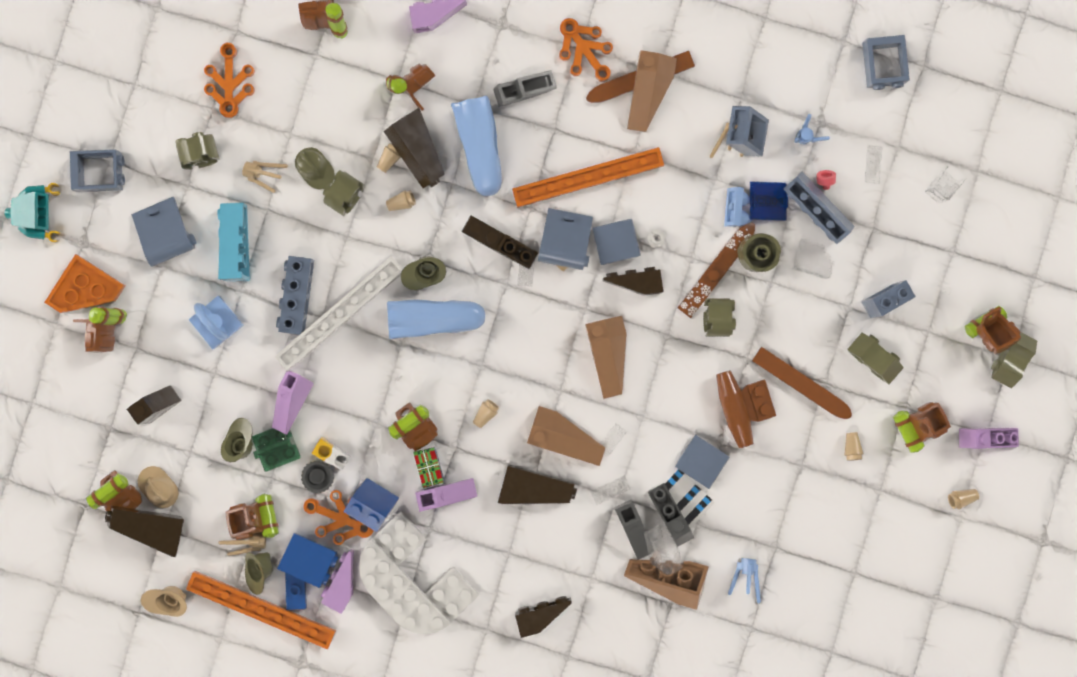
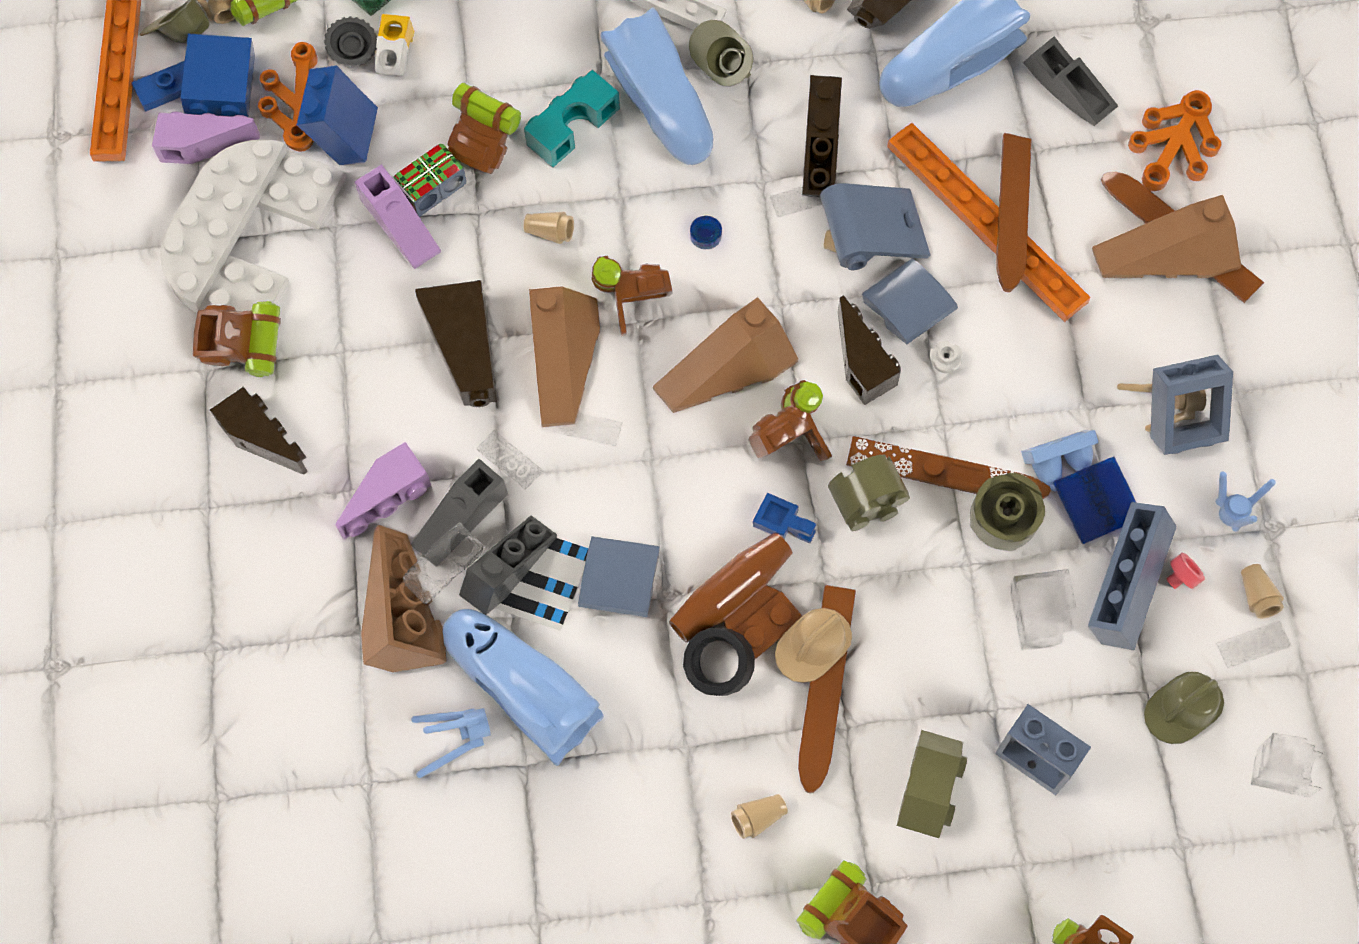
camera: 70 degrees right, 20 degrees down
(426, 389) = (587, 99): none -> teal arch
(480, 610) = (238, 336): none -> dark orange piece
(525, 330) = (705, 232): none -> clear blue tile
(546, 388) = (630, 285): none -> dark orange piece
(589, 160) = (1013, 210): none -> dark orange piece
(600, 558) = (387, 485): none -> lavender slope
(663, 340) = (791, 422): none -> dark orange piece
(707, 367) = (779, 517): none -> blue plate
(745, 533) = (524, 682): none -> light blue piece
(779, 443) = (692, 658): none -> black tyre
(781, 381) = (813, 645): none -> tan piece
(852, 147) = (1261, 592): none -> tan cone
(889, 215) = (1184, 708): none -> olive piece

